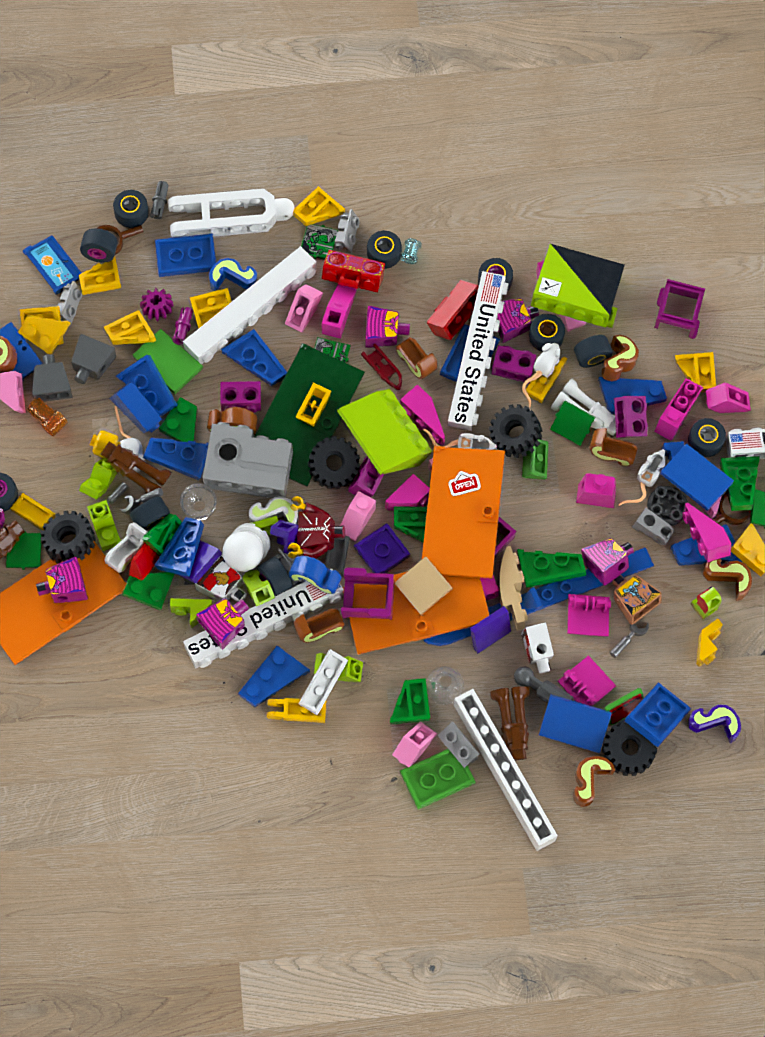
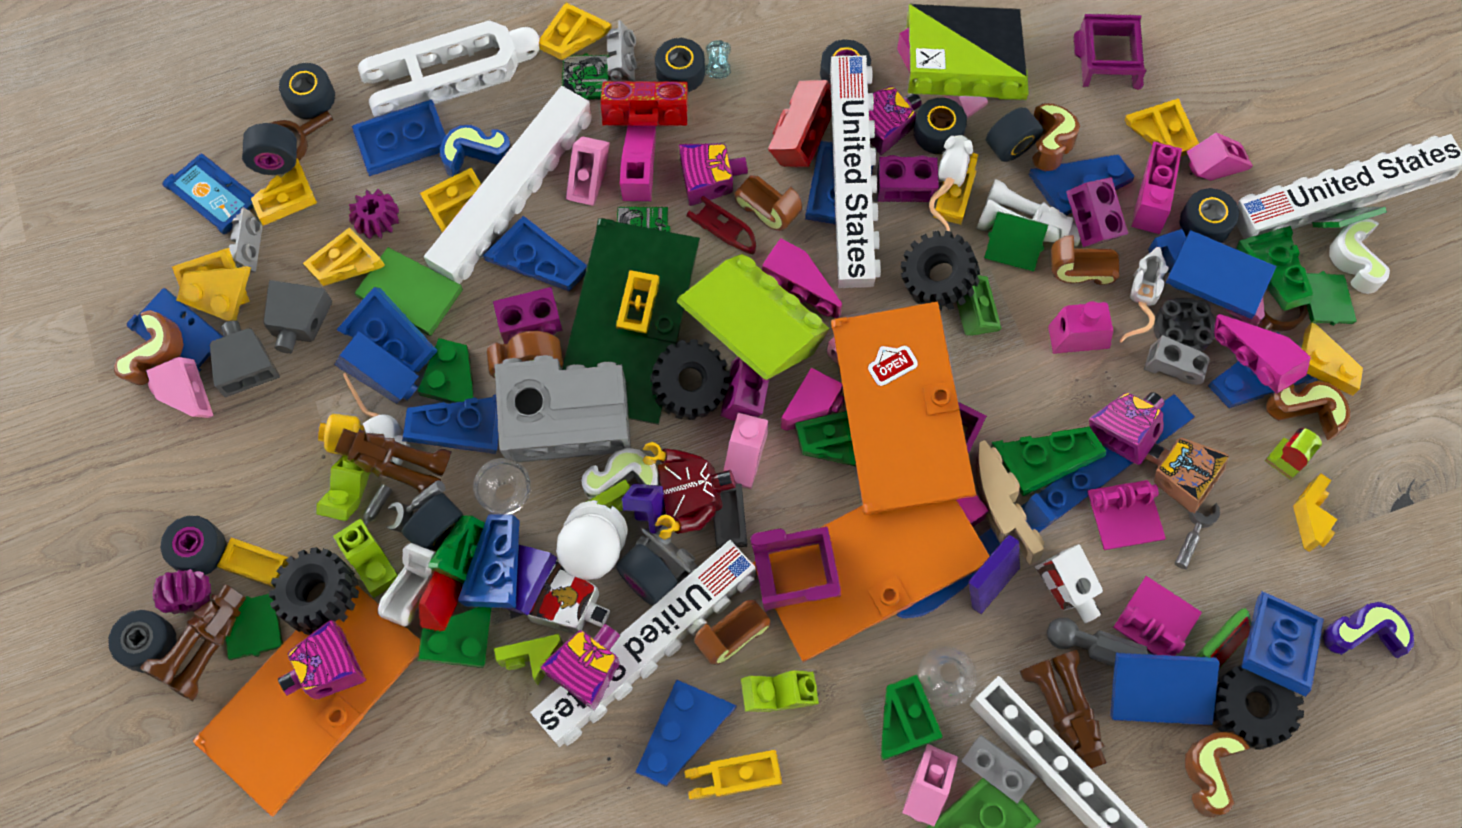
camera: 10 degrees left, 0 degrees up
(51, 420) = (251, 417): clear orange piece -> none
(159, 200) = (346, 71): dark grey axle -> none
(182, 325) = (418, 235): magenta pin -> none
(259, 590) = (628, 602): lime leg -> none
(315, 573) = (708, 555): blue animal -> none
(323, 682) = (764, 723): white tile -> none
(382, 550) = (794, 492): dark purple tile -> none
(423, 585) = (876, 532): tan tile -> none
(468, 441) = (876, 301): white animal -> none

